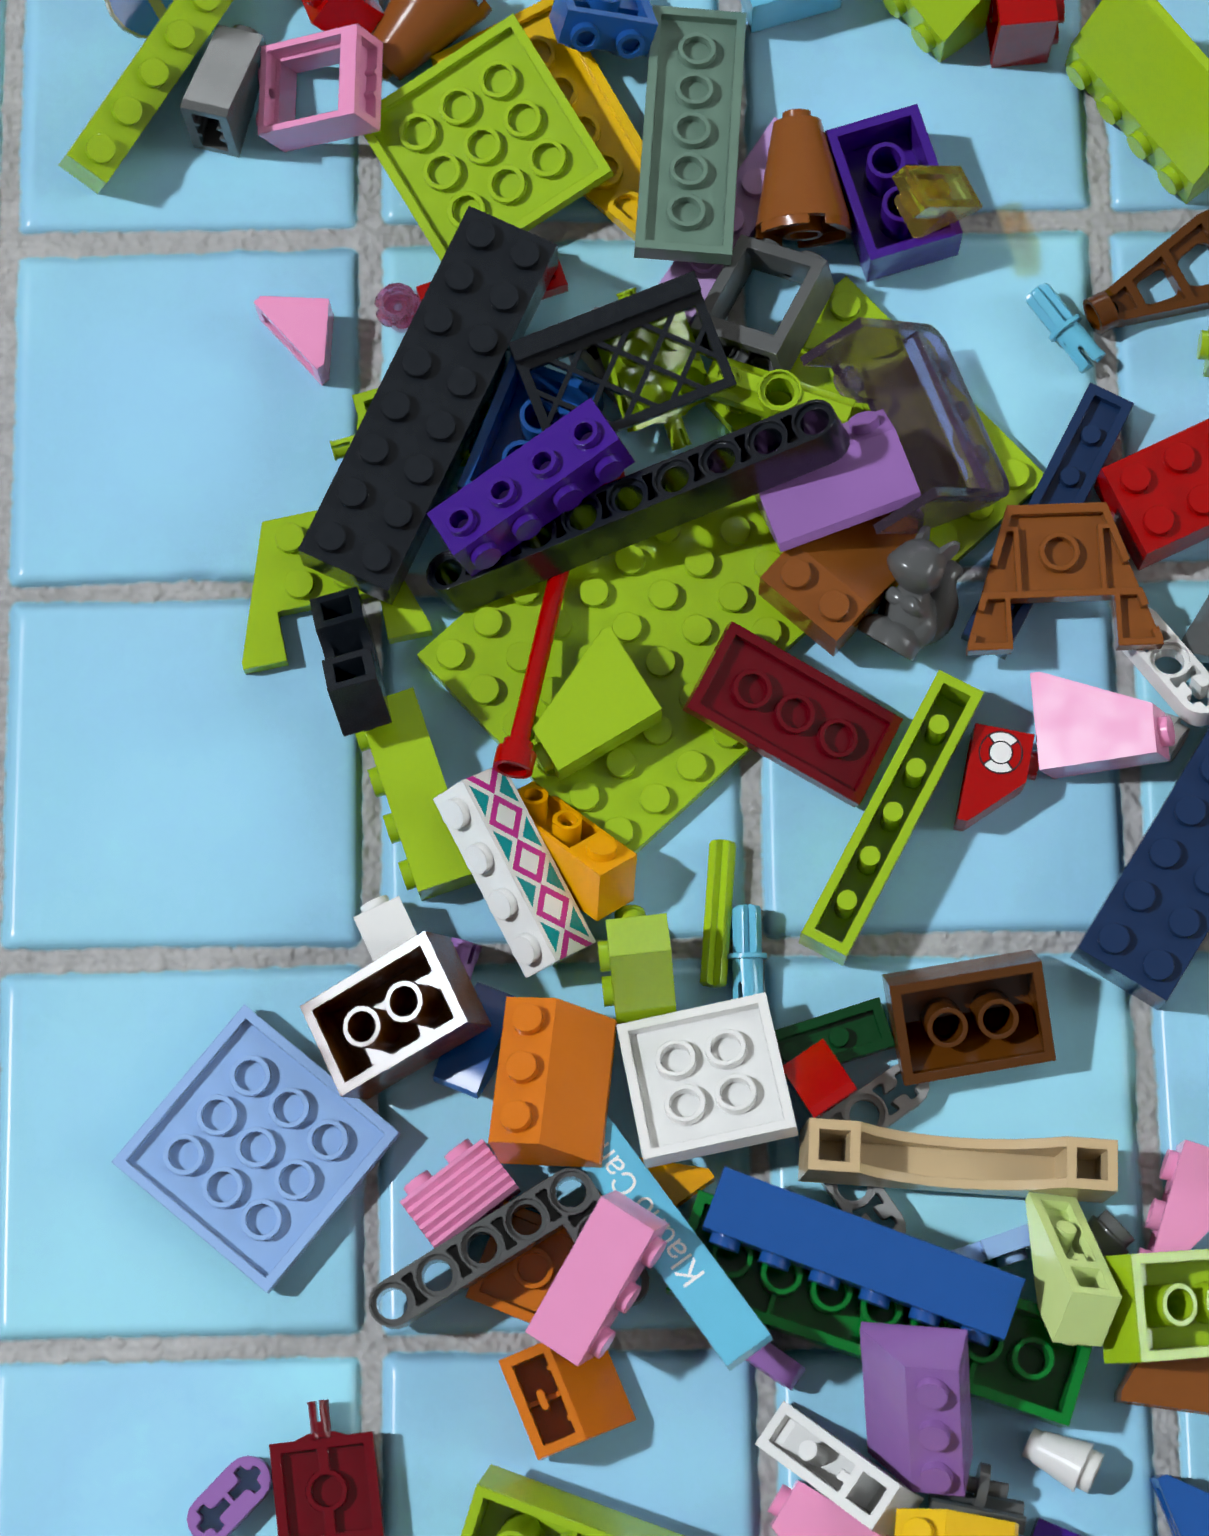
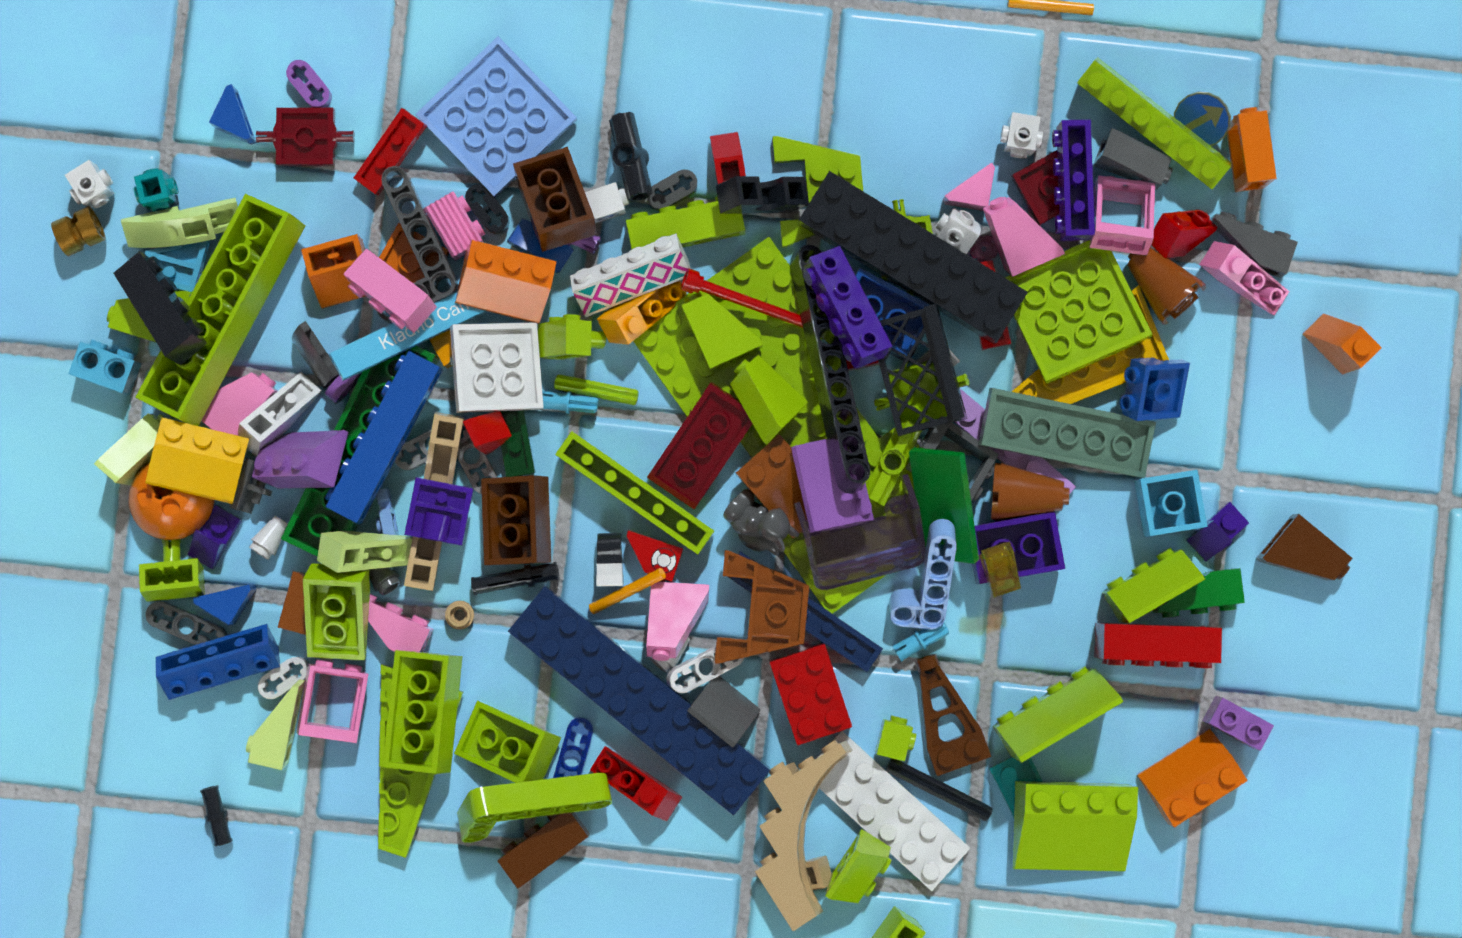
camera: 90 degrees right, 10 degrees up
(201, 264) = (1025, 126): none -> white brick
(270, 163) = (1074, 180): none -> dark purple brick
(276, 914) = (628, 142): none -> black piece
(282, 213) = (1037, 188): none -> dark red plate
(294, 734) = (727, 156): none -> red slope
(339, 1329) = (390, 150): none -> red plate
(344, 834) = (668, 184): none -> dark grey beam
(371, 342) = (958, 229): none -> white brick
(374, 245) = (1018, 237): none -> bright pink slope
(414, 1134) = (492, 204): none -> black beam
(701, 609) = (766, 397): none -> lime slope
(725, 1415) = (314, 354): none -> dark grey slope
(820, 291) = (944, 493): none -> green tile
(977, 1146) = (438, 511): none -> dark purple plate
(999, 310) = (928, 606): none -> light blue beam
(1013, 850) = (609, 560): none -> leg
(1061, 810) = (627, 591): none -> light orange bar
(1068, 1010) = (515, 578): none -> black pin
(1160, 1092) = (450, 615): none -> tan plate

